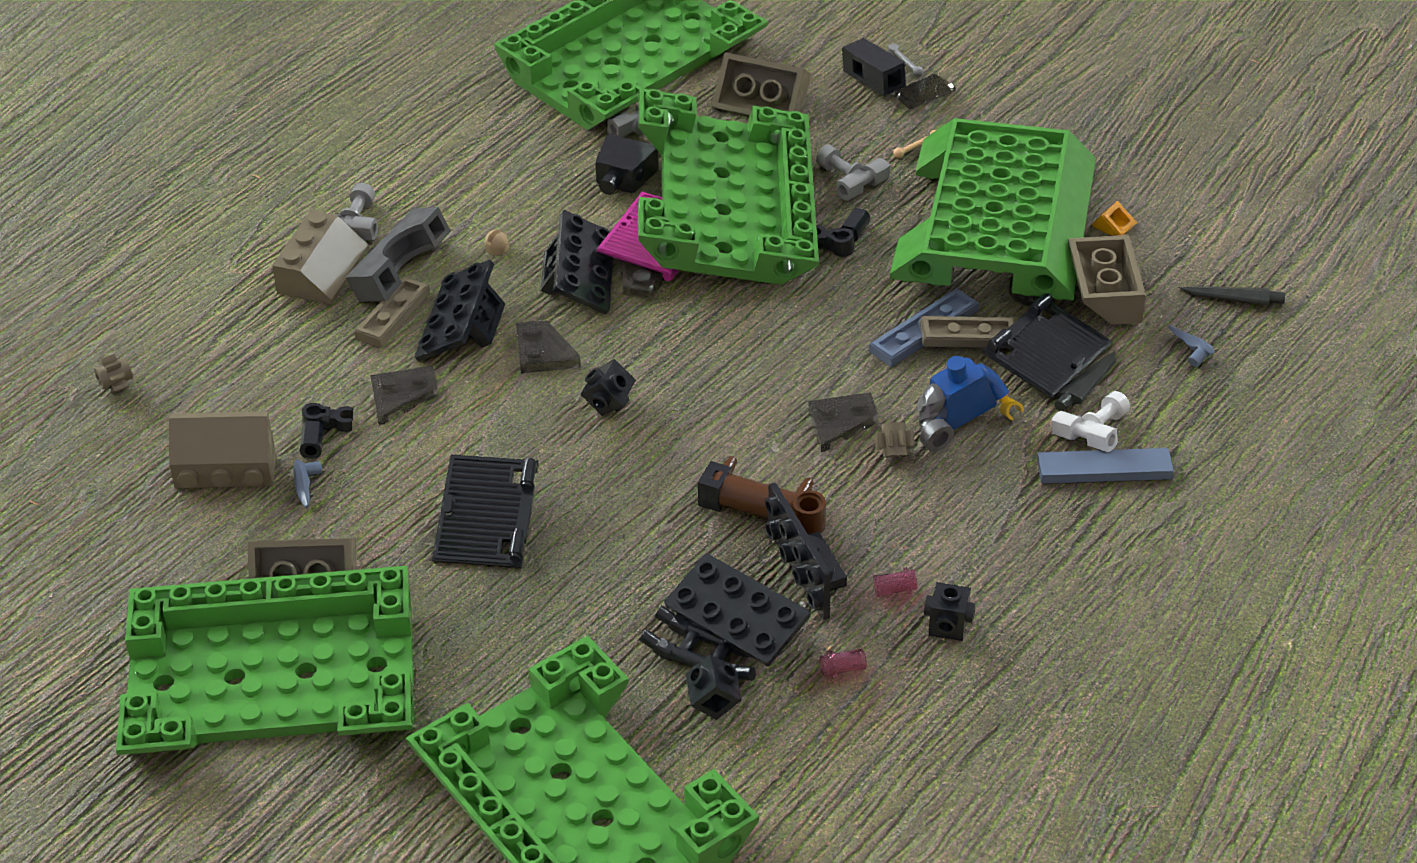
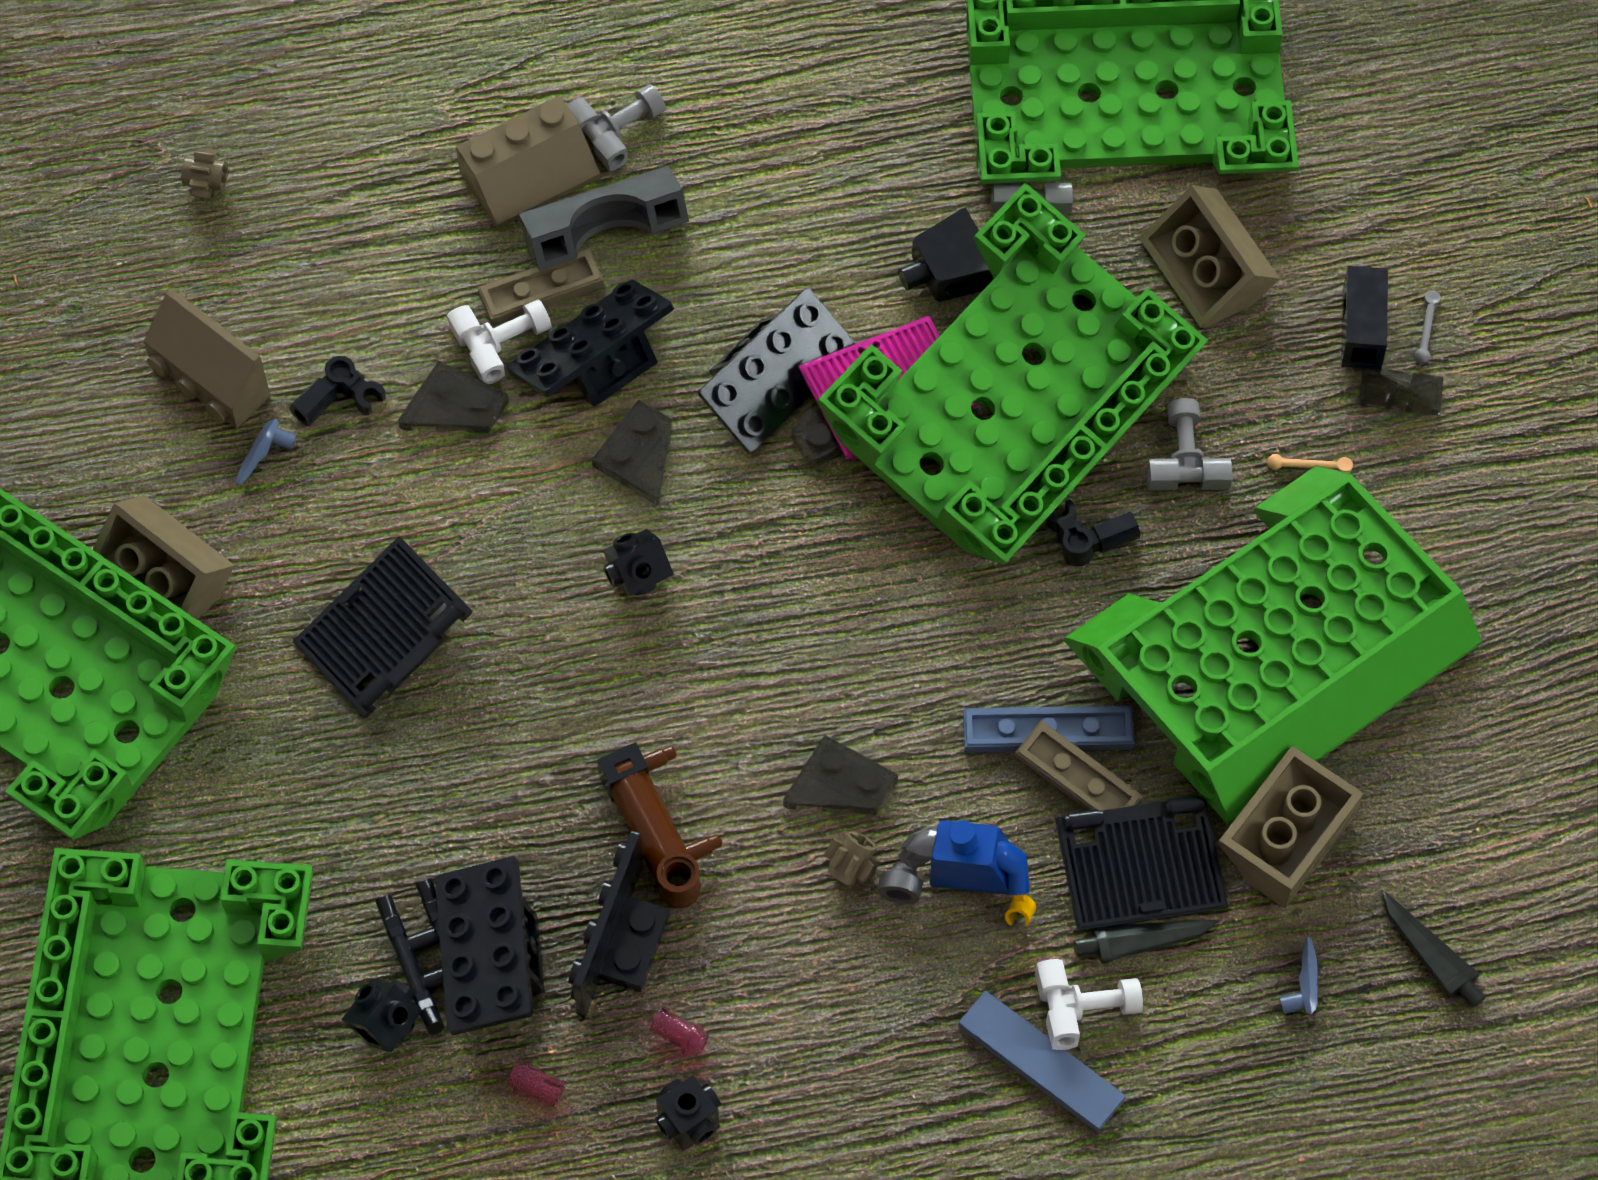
camera: 40 degrees right, 20 degrees up
(390, 347) = (485, 341): none -> white bar
(496, 242) = (727, 269): tan hinge -> none
(1114, 221) = (1409, 746): light orange slope -> none

